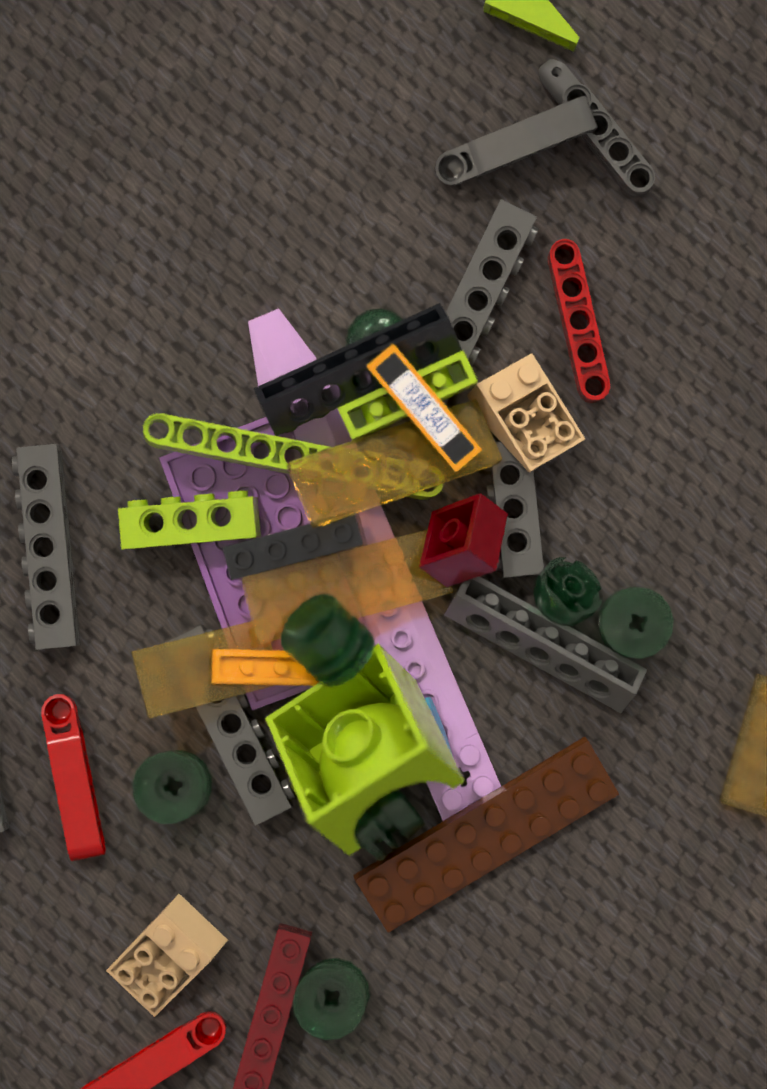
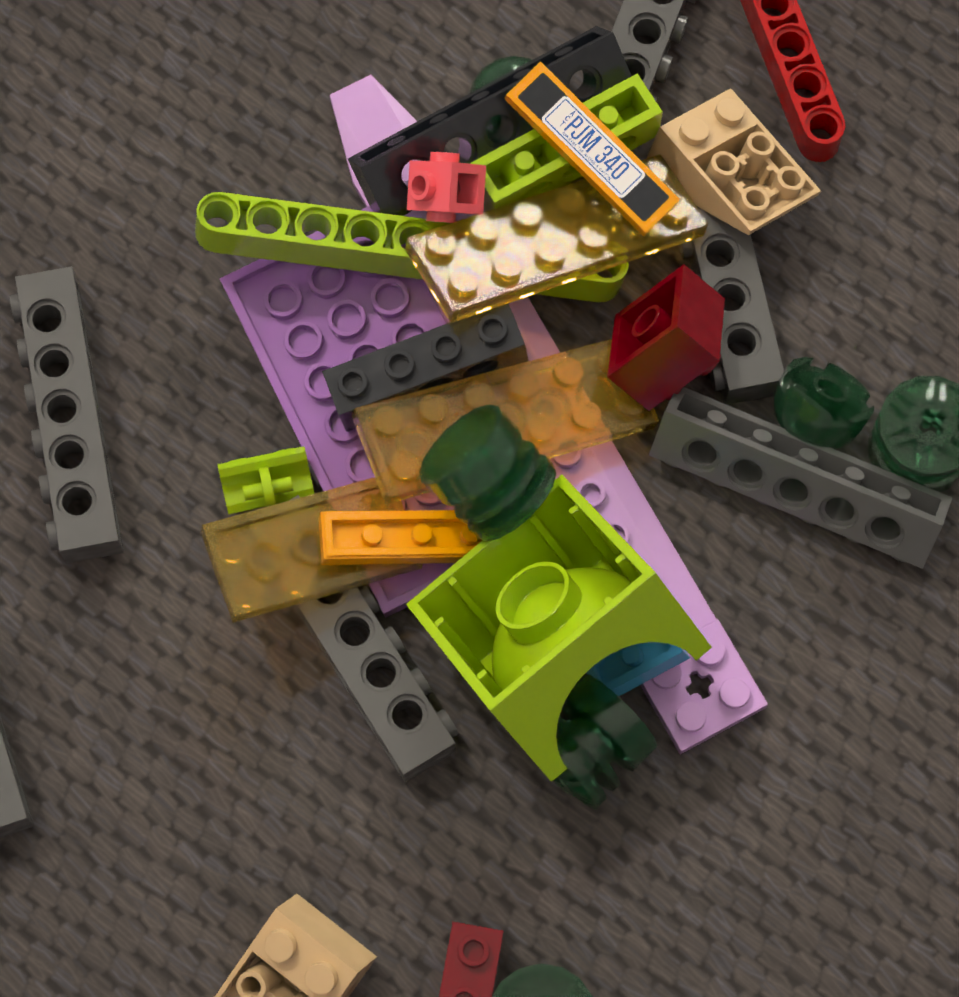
camera: 10 degrees left, 15 degrees down
(72, 778) = (125, 739): red piece -> none
(137, 533) = (248, 373): lime brick -> none
(153, 792) = (248, 720): clear green wheel -> none
(180, 609) = (265, 479): none -> lime hips
(319, 426) = (446, 187): none -> coral brick
(486, 834) = (746, 764): reddish brown plate -> none

